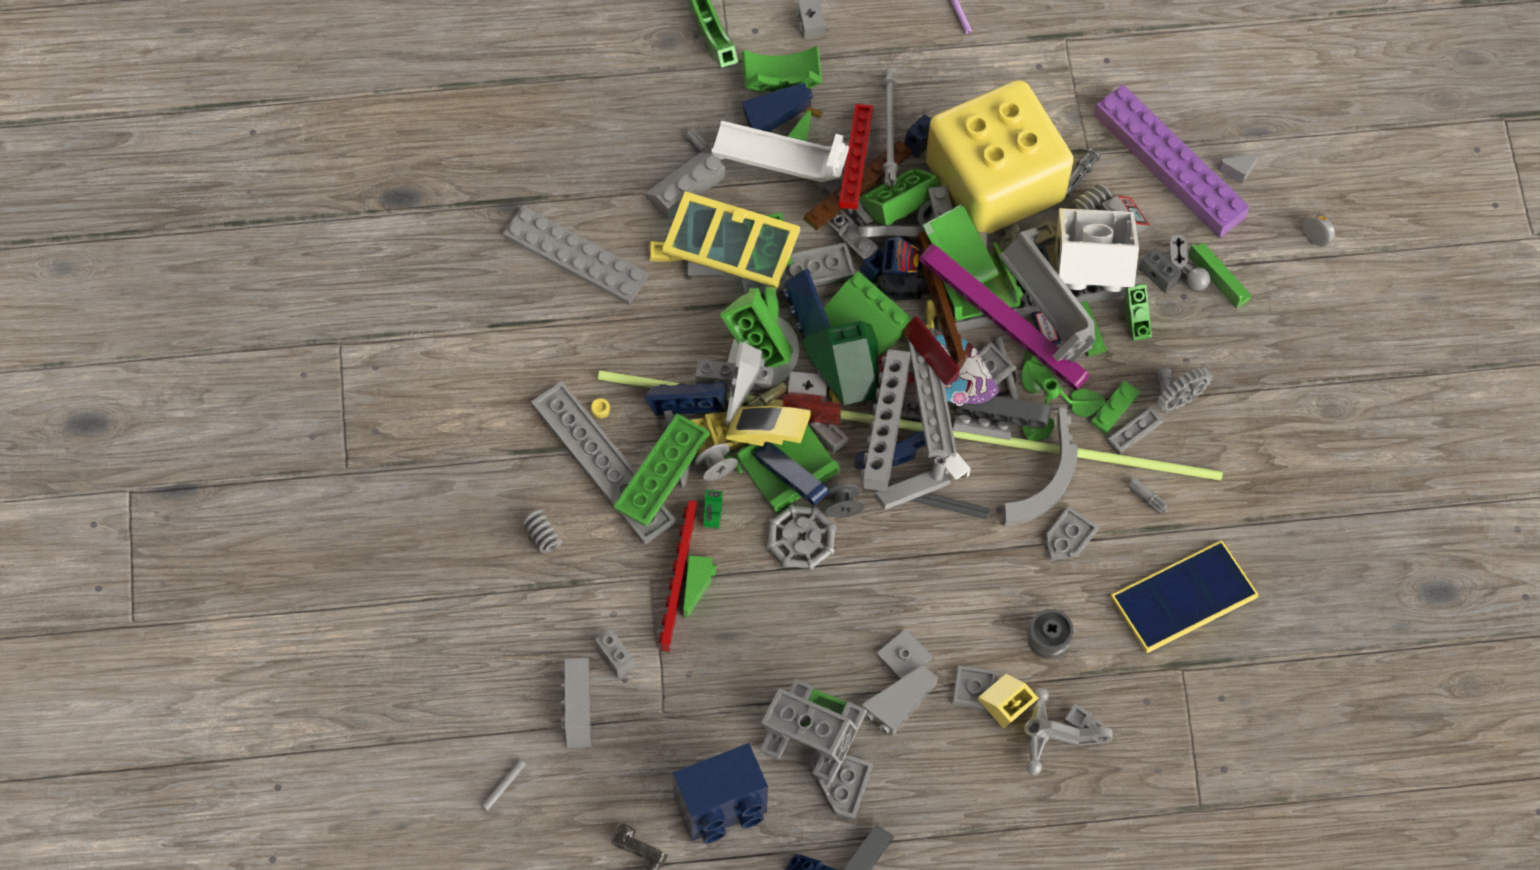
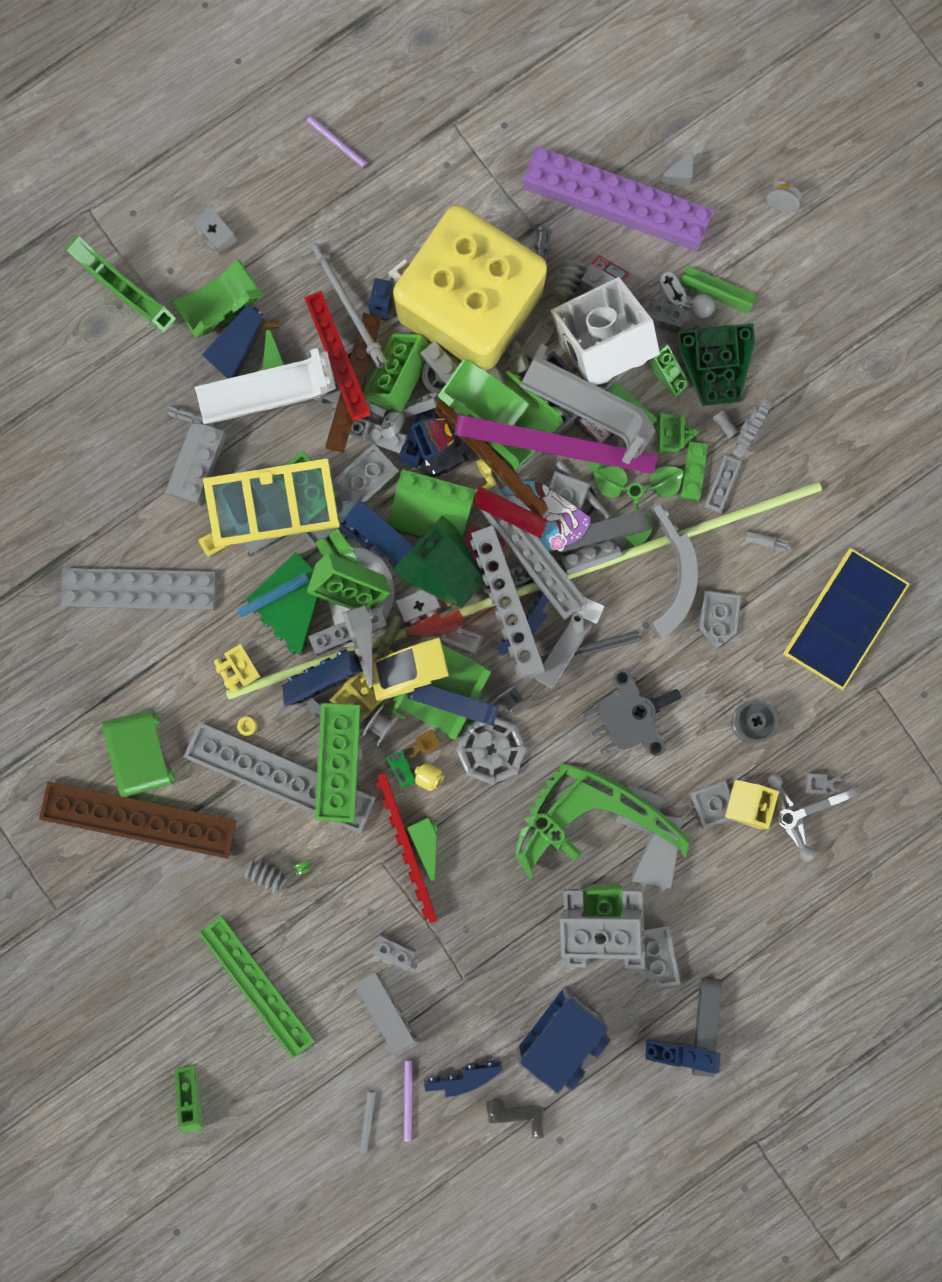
camera: 25 degrees left, 20 degrees up
(359, 680) = (188, 1100): none -> bright green slope
(461, 432) = (138, 819): none -> reddish brown plate
(477, 620) = (257, 986): none -> bright green plate
(494, 378) = (136, 753): none -> bright green windscreen
(550, 787) = (408, 1101): none -> lavender piece
(577, 544) = (302, 867): none -> bright green bush
(618, 797) = (472, 1078): none -> dark blue slope
(626, 356) = (242, 666): none -> light yellow plate
(686, 311) = (271, 596): none -> dark azure axle
(695, 328) = (292, 613): none -> green slope
(733, 528) = (428, 776): none -> light yellow head
(747, 500) = (426, 742): none -> pearl gold plate
(784, 304) = (353, 535): none -> dark blue piece
(853, 614) = (577, 801): none -> bright green piece
(932, 570) = (619, 718): none -> dark grey piece
(1114, 367) = (673, 433): none -> bright green slope
(1185, 328) = (717, 361): none -> dark green wedge

